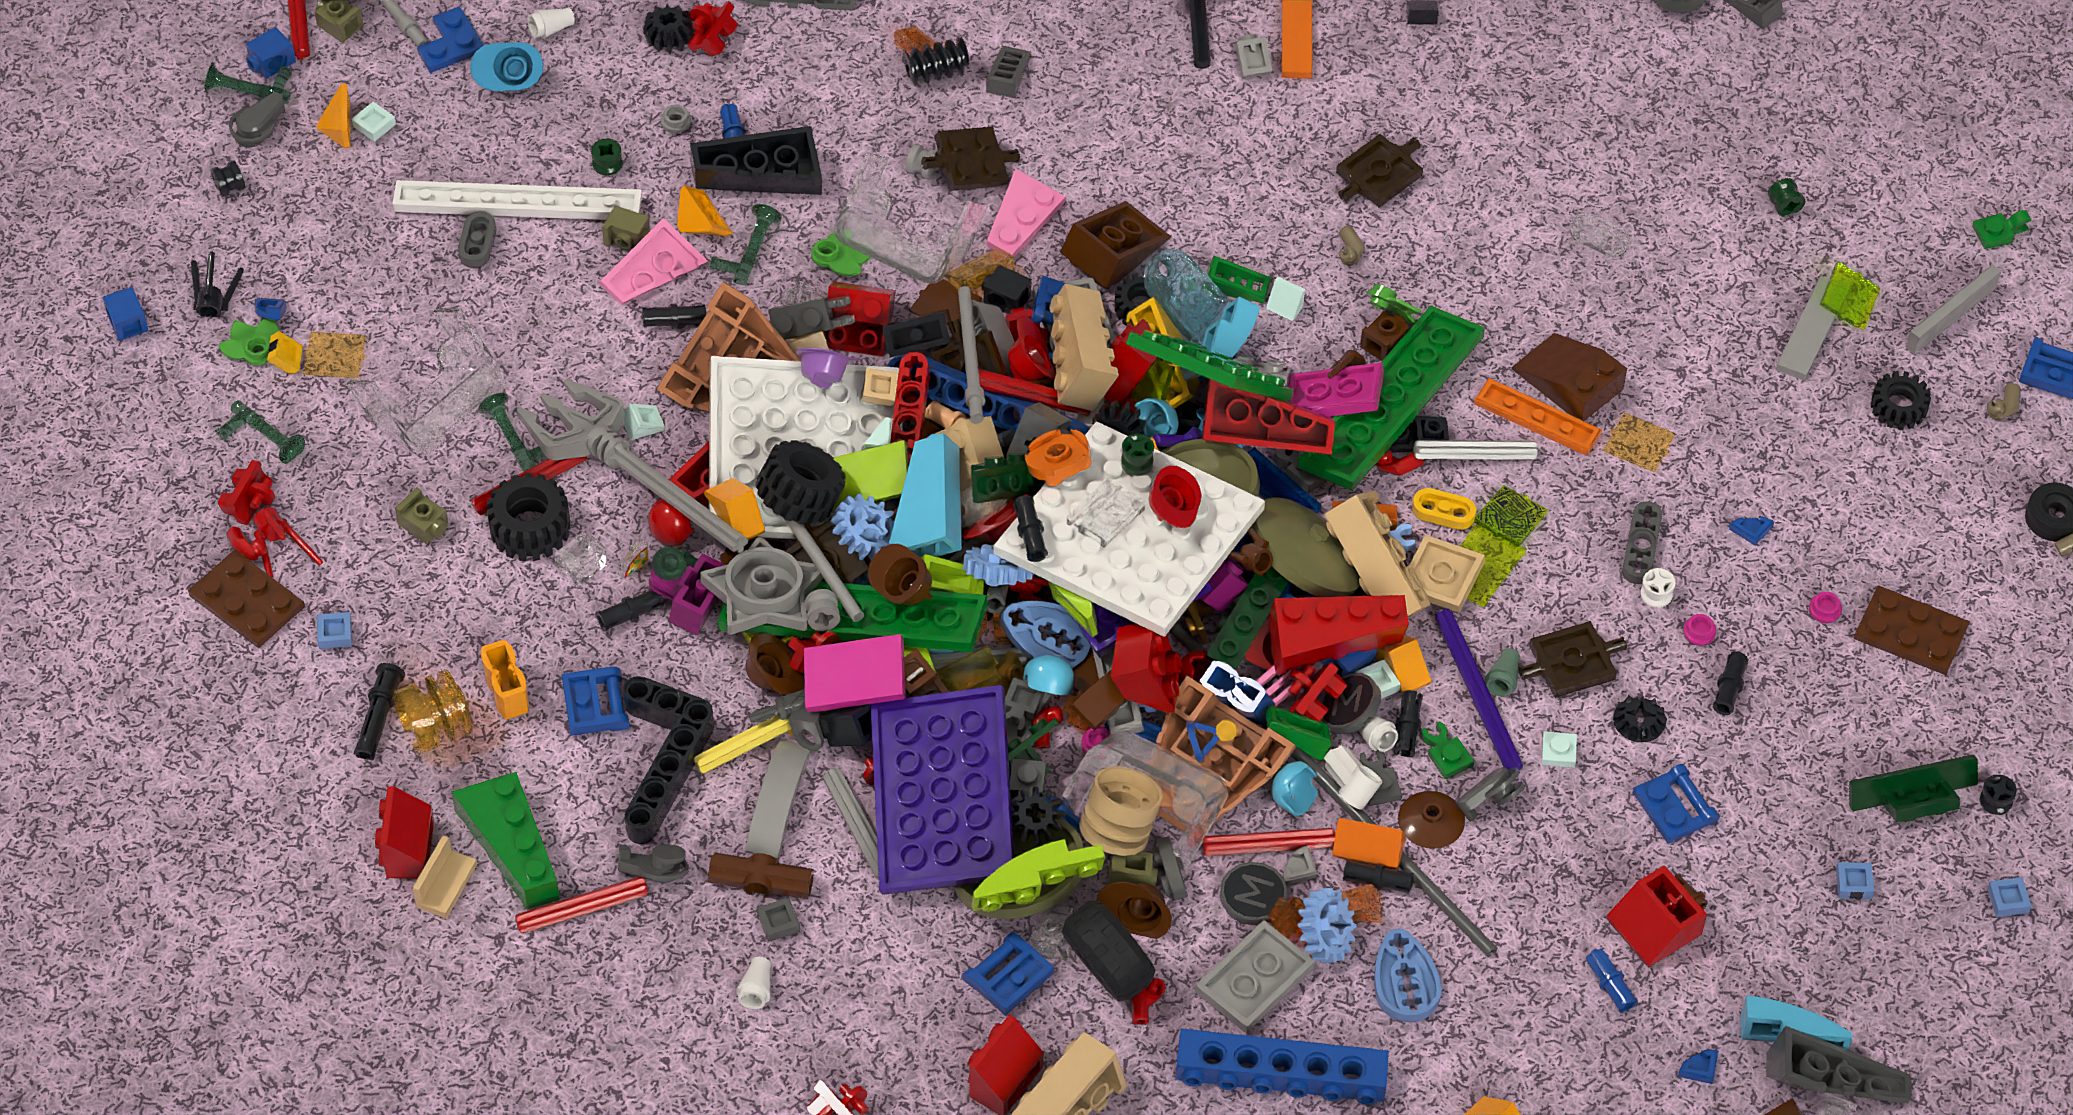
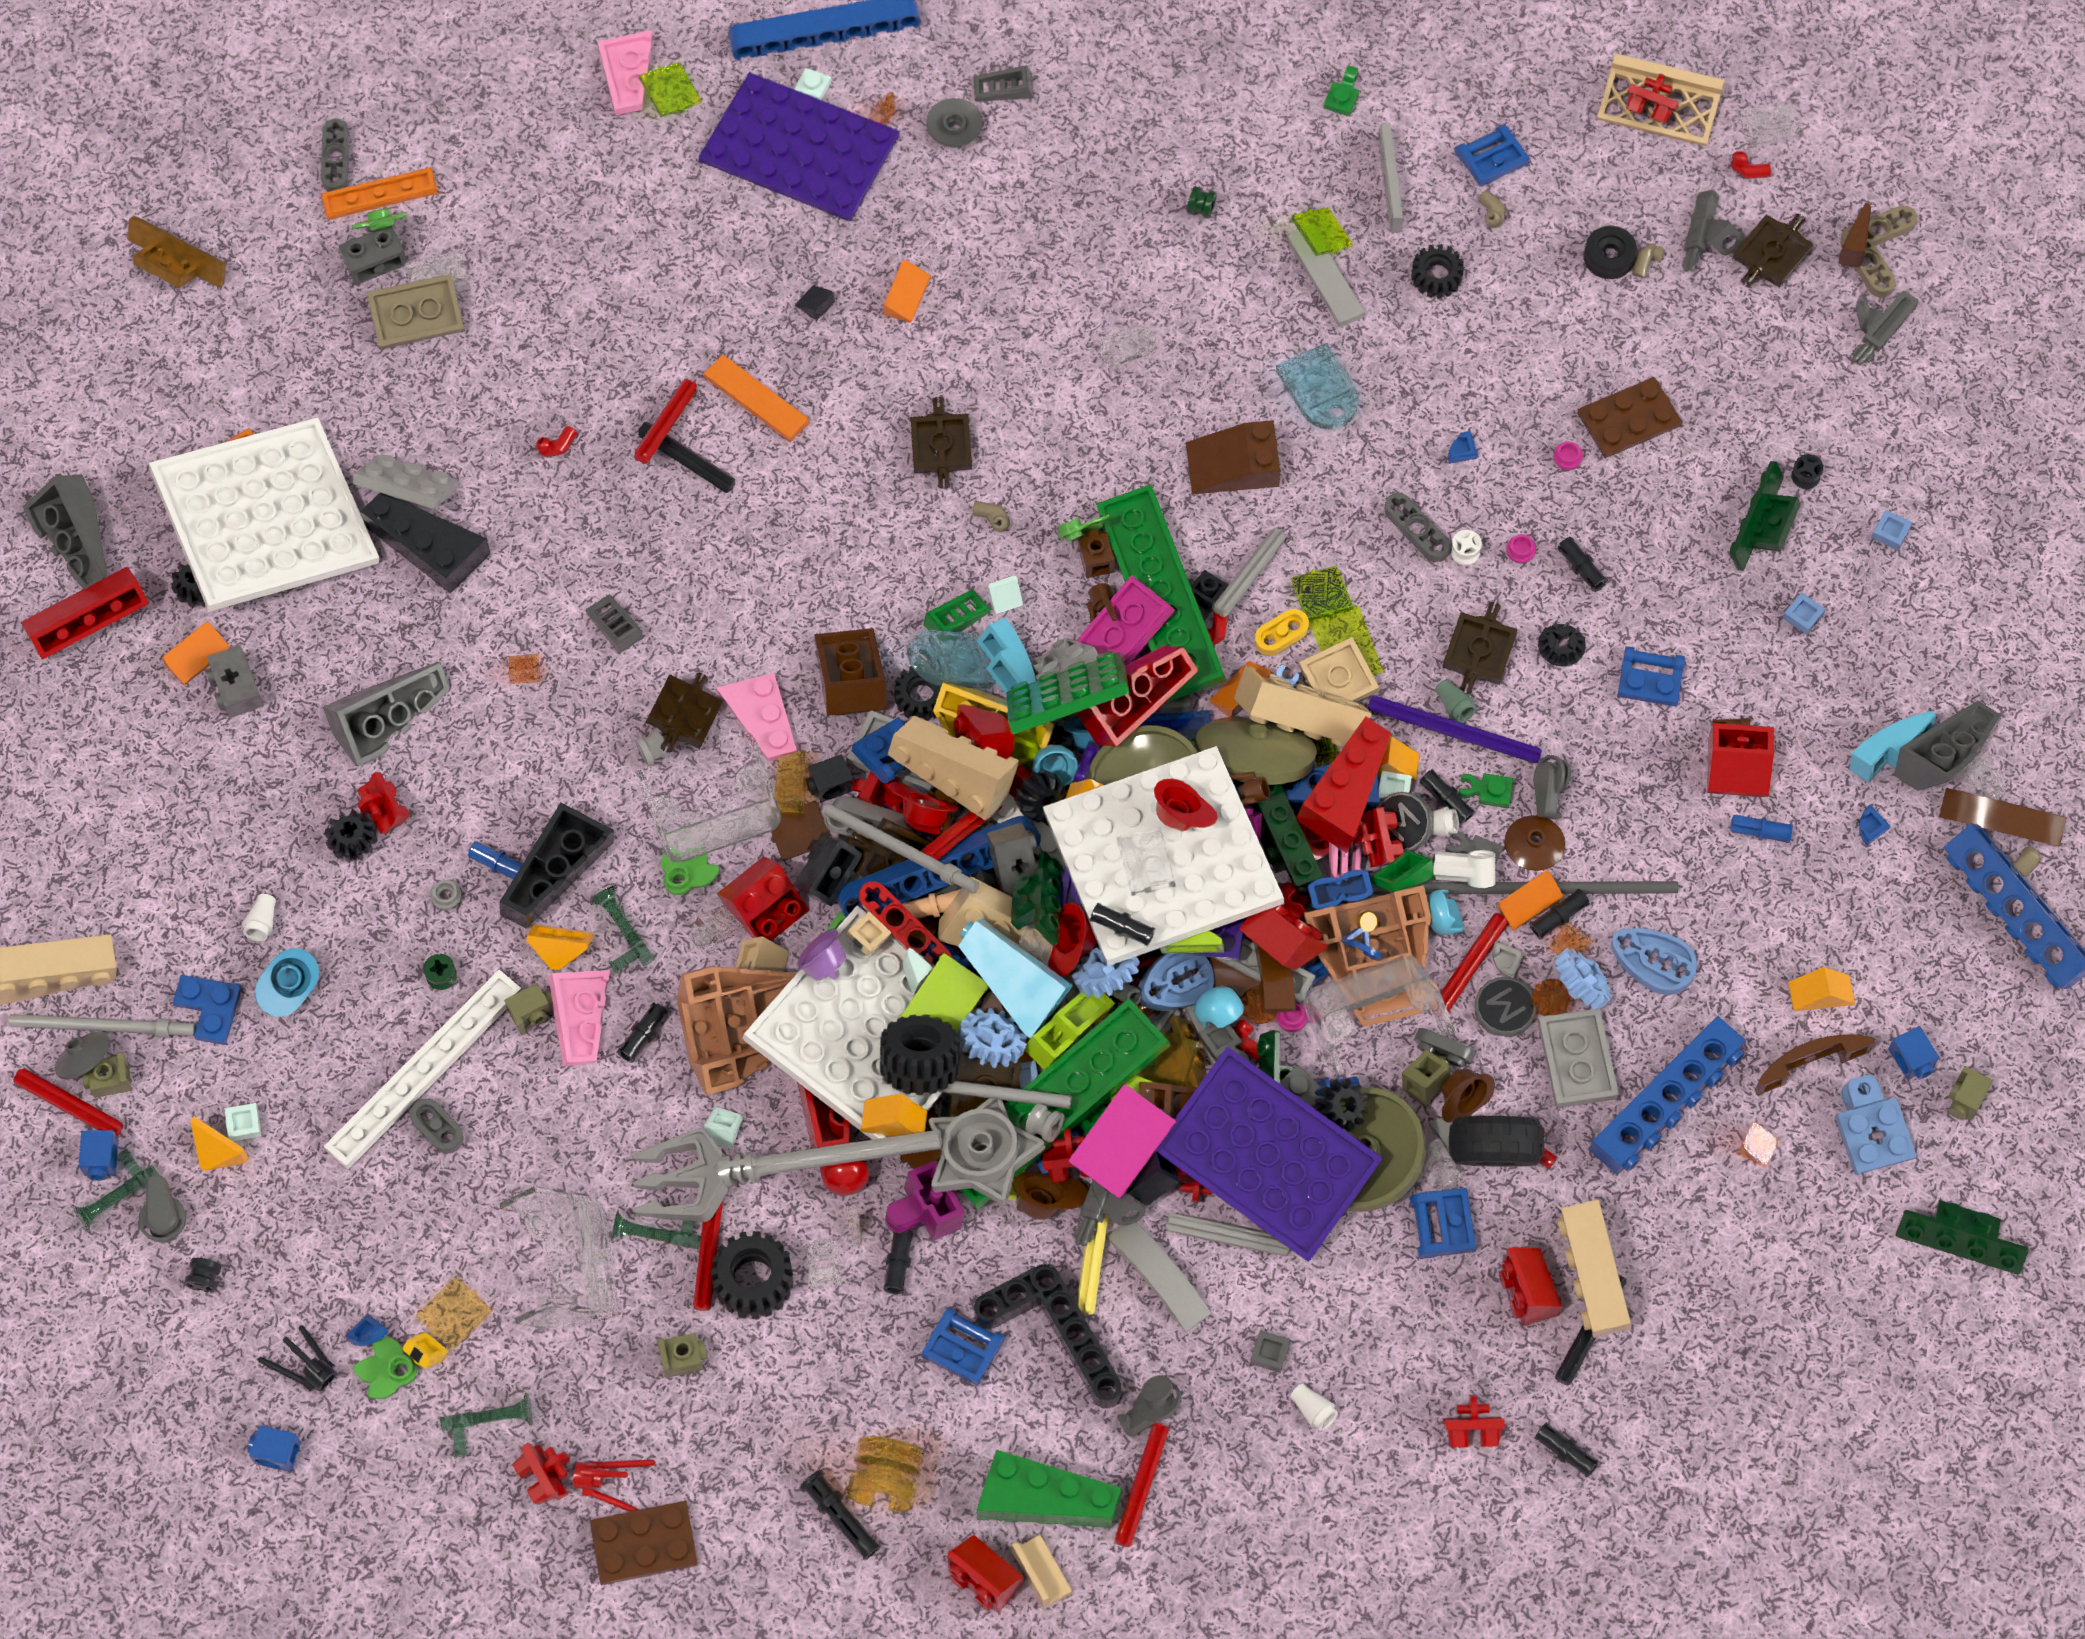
camera: 50 degrees left, 10 degrees up
(240, 543) = (591, 1511): red arm -> none
(334, 630) = (734, 1495): medium blue plate -> none
(505, 679) = (887, 1397): light orange brick -> none
(671, 562) = (909, 1202): clear green piece -> none
(760, 875) = (1221, 1336): reddish brown piece -> none
(809, 316) = (741, 933): dark grey hinge -> none
(900, 575) = (1065, 1046): reddish brown piece -> none
(936, 60) = (564, 665): black piece -> none
(1023, 876) = (1400, 1149): lime slope -> none
(1072, 458) = (1078, 865): orange plate -> none
(1120, 810) = (1386, 1044): tan wheel -> none
(1137, 454) = (1111, 793): dark green wheel -> none
(1253, 56) = (757, 446): light grey bracket -> none
(1492, 59) = (906, 292): none -> orange slope
(1538, 416) = (1250, 509): orange tile -> none
(1559, 749) = (1545, 715): light aqua plate -> none
(1639, 442) = (1327, 462): clear yellow piece -> none
(1704, 386) = (1318, 385): none -> clear light blue plate

